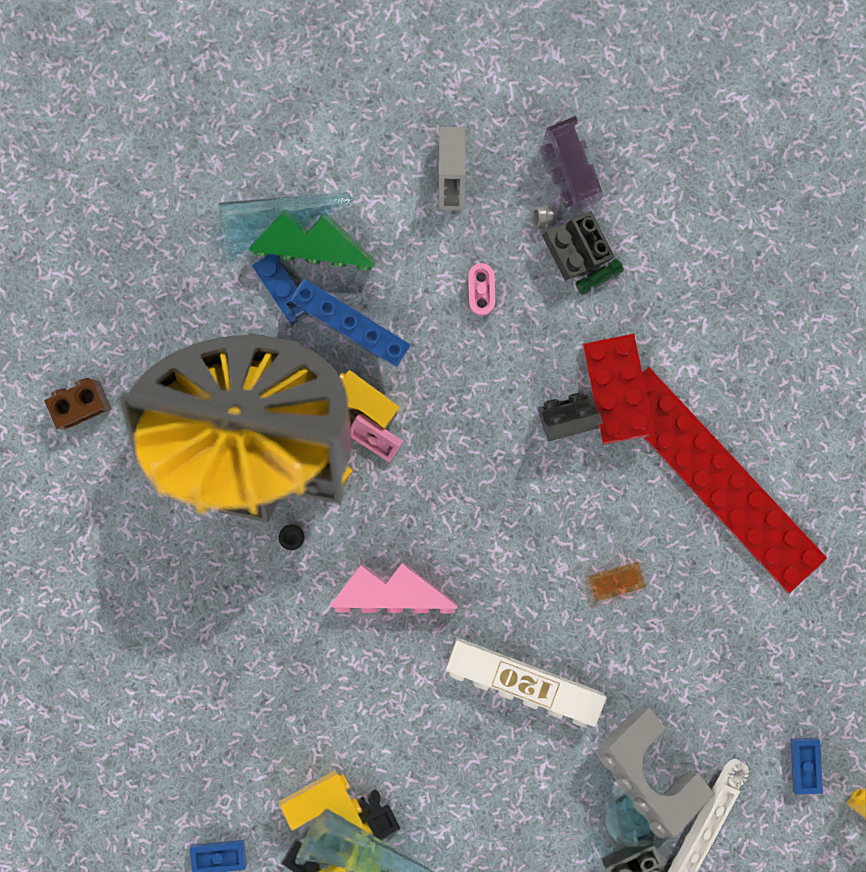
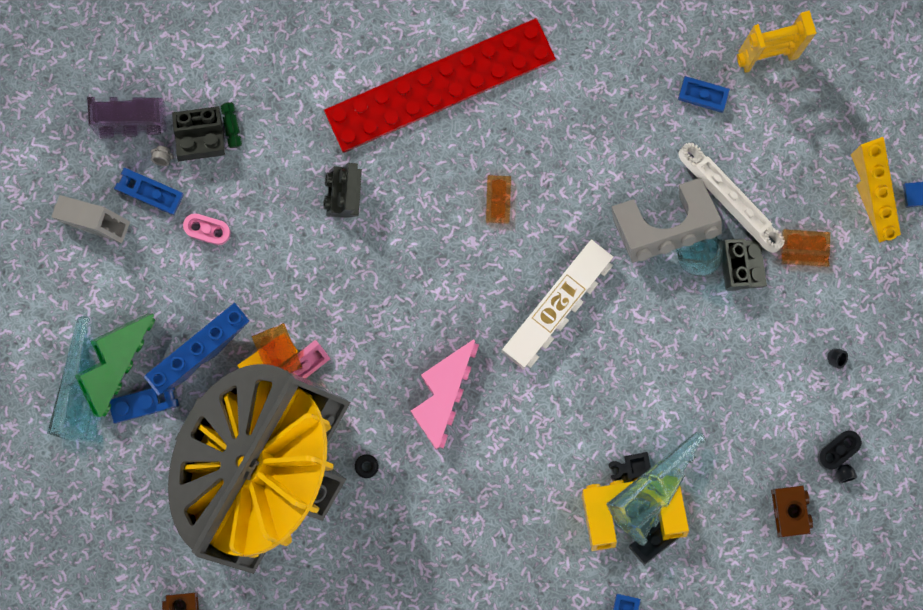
camera: 85 degrees left, 5 degrees down
(375, 406) = (277, 348): none -> clear orange plate
(501, 218) = (149, 191): none -> blue plate
(619, 389) = (334, 141): red plate -> none

